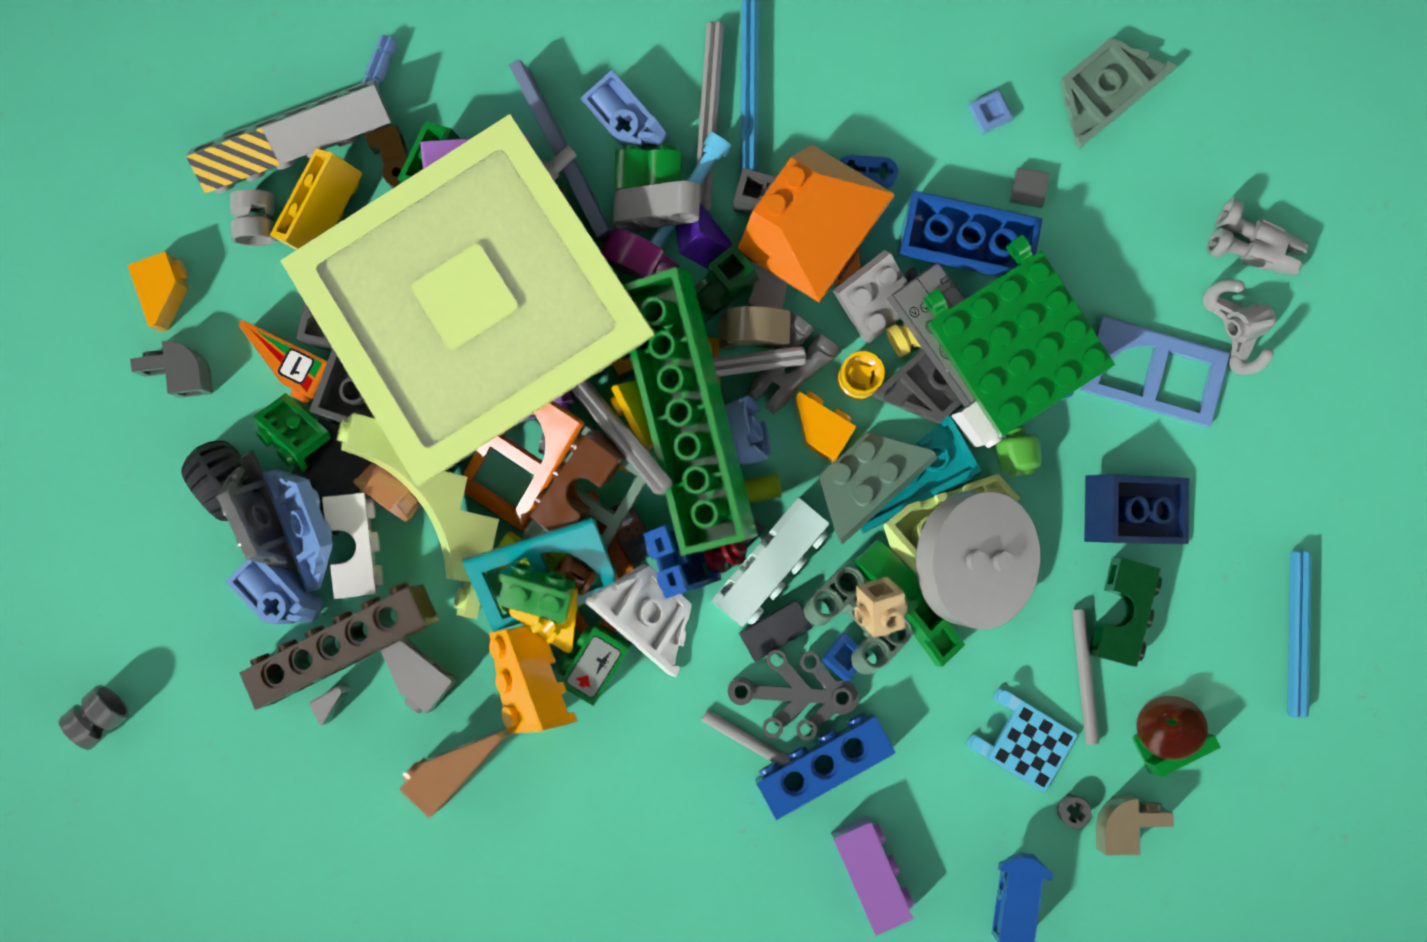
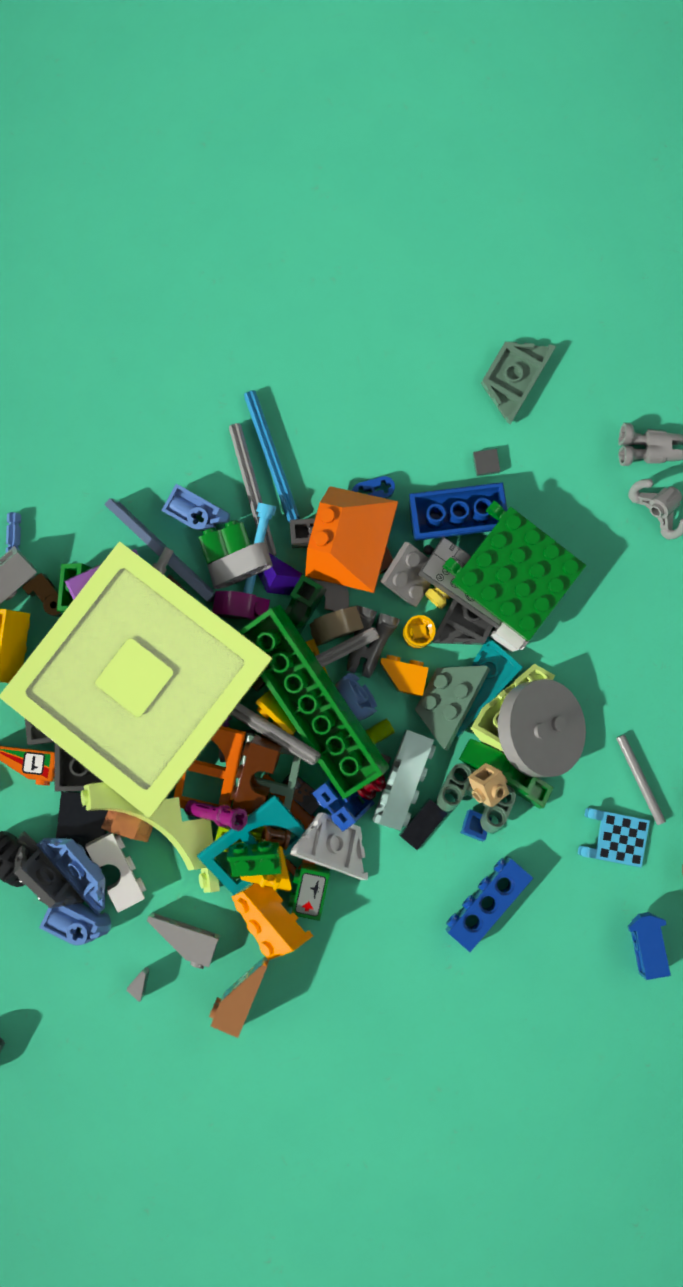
camera: 25 degrees left, 0 degrees up
(264, 677) = (90, 985): dark brown brick -> none
(290, 431) = (45, 808): green bracket -> none
(514, 519) = (222, 815): none -> magenta pin
(744, 738) = (428, 904): light grey bar -> none
(799, 694) = (455, 862): dark grey plant -> none
(873, 875) = (547, 964): medium lavender brick -> none
(990, 112) = (442, 420): medium blue tile -> none
(1019, 453) = (544, 646): bright green head -> none
(1064, 814) = (670, 867): dark grey bush -> none
(1120, 336) = (581, 542): medium blue window -> none
(1136, 509) = (635, 655): dark blue slope -> none
(1137, 586) = (657, 746): dark green arch -> none

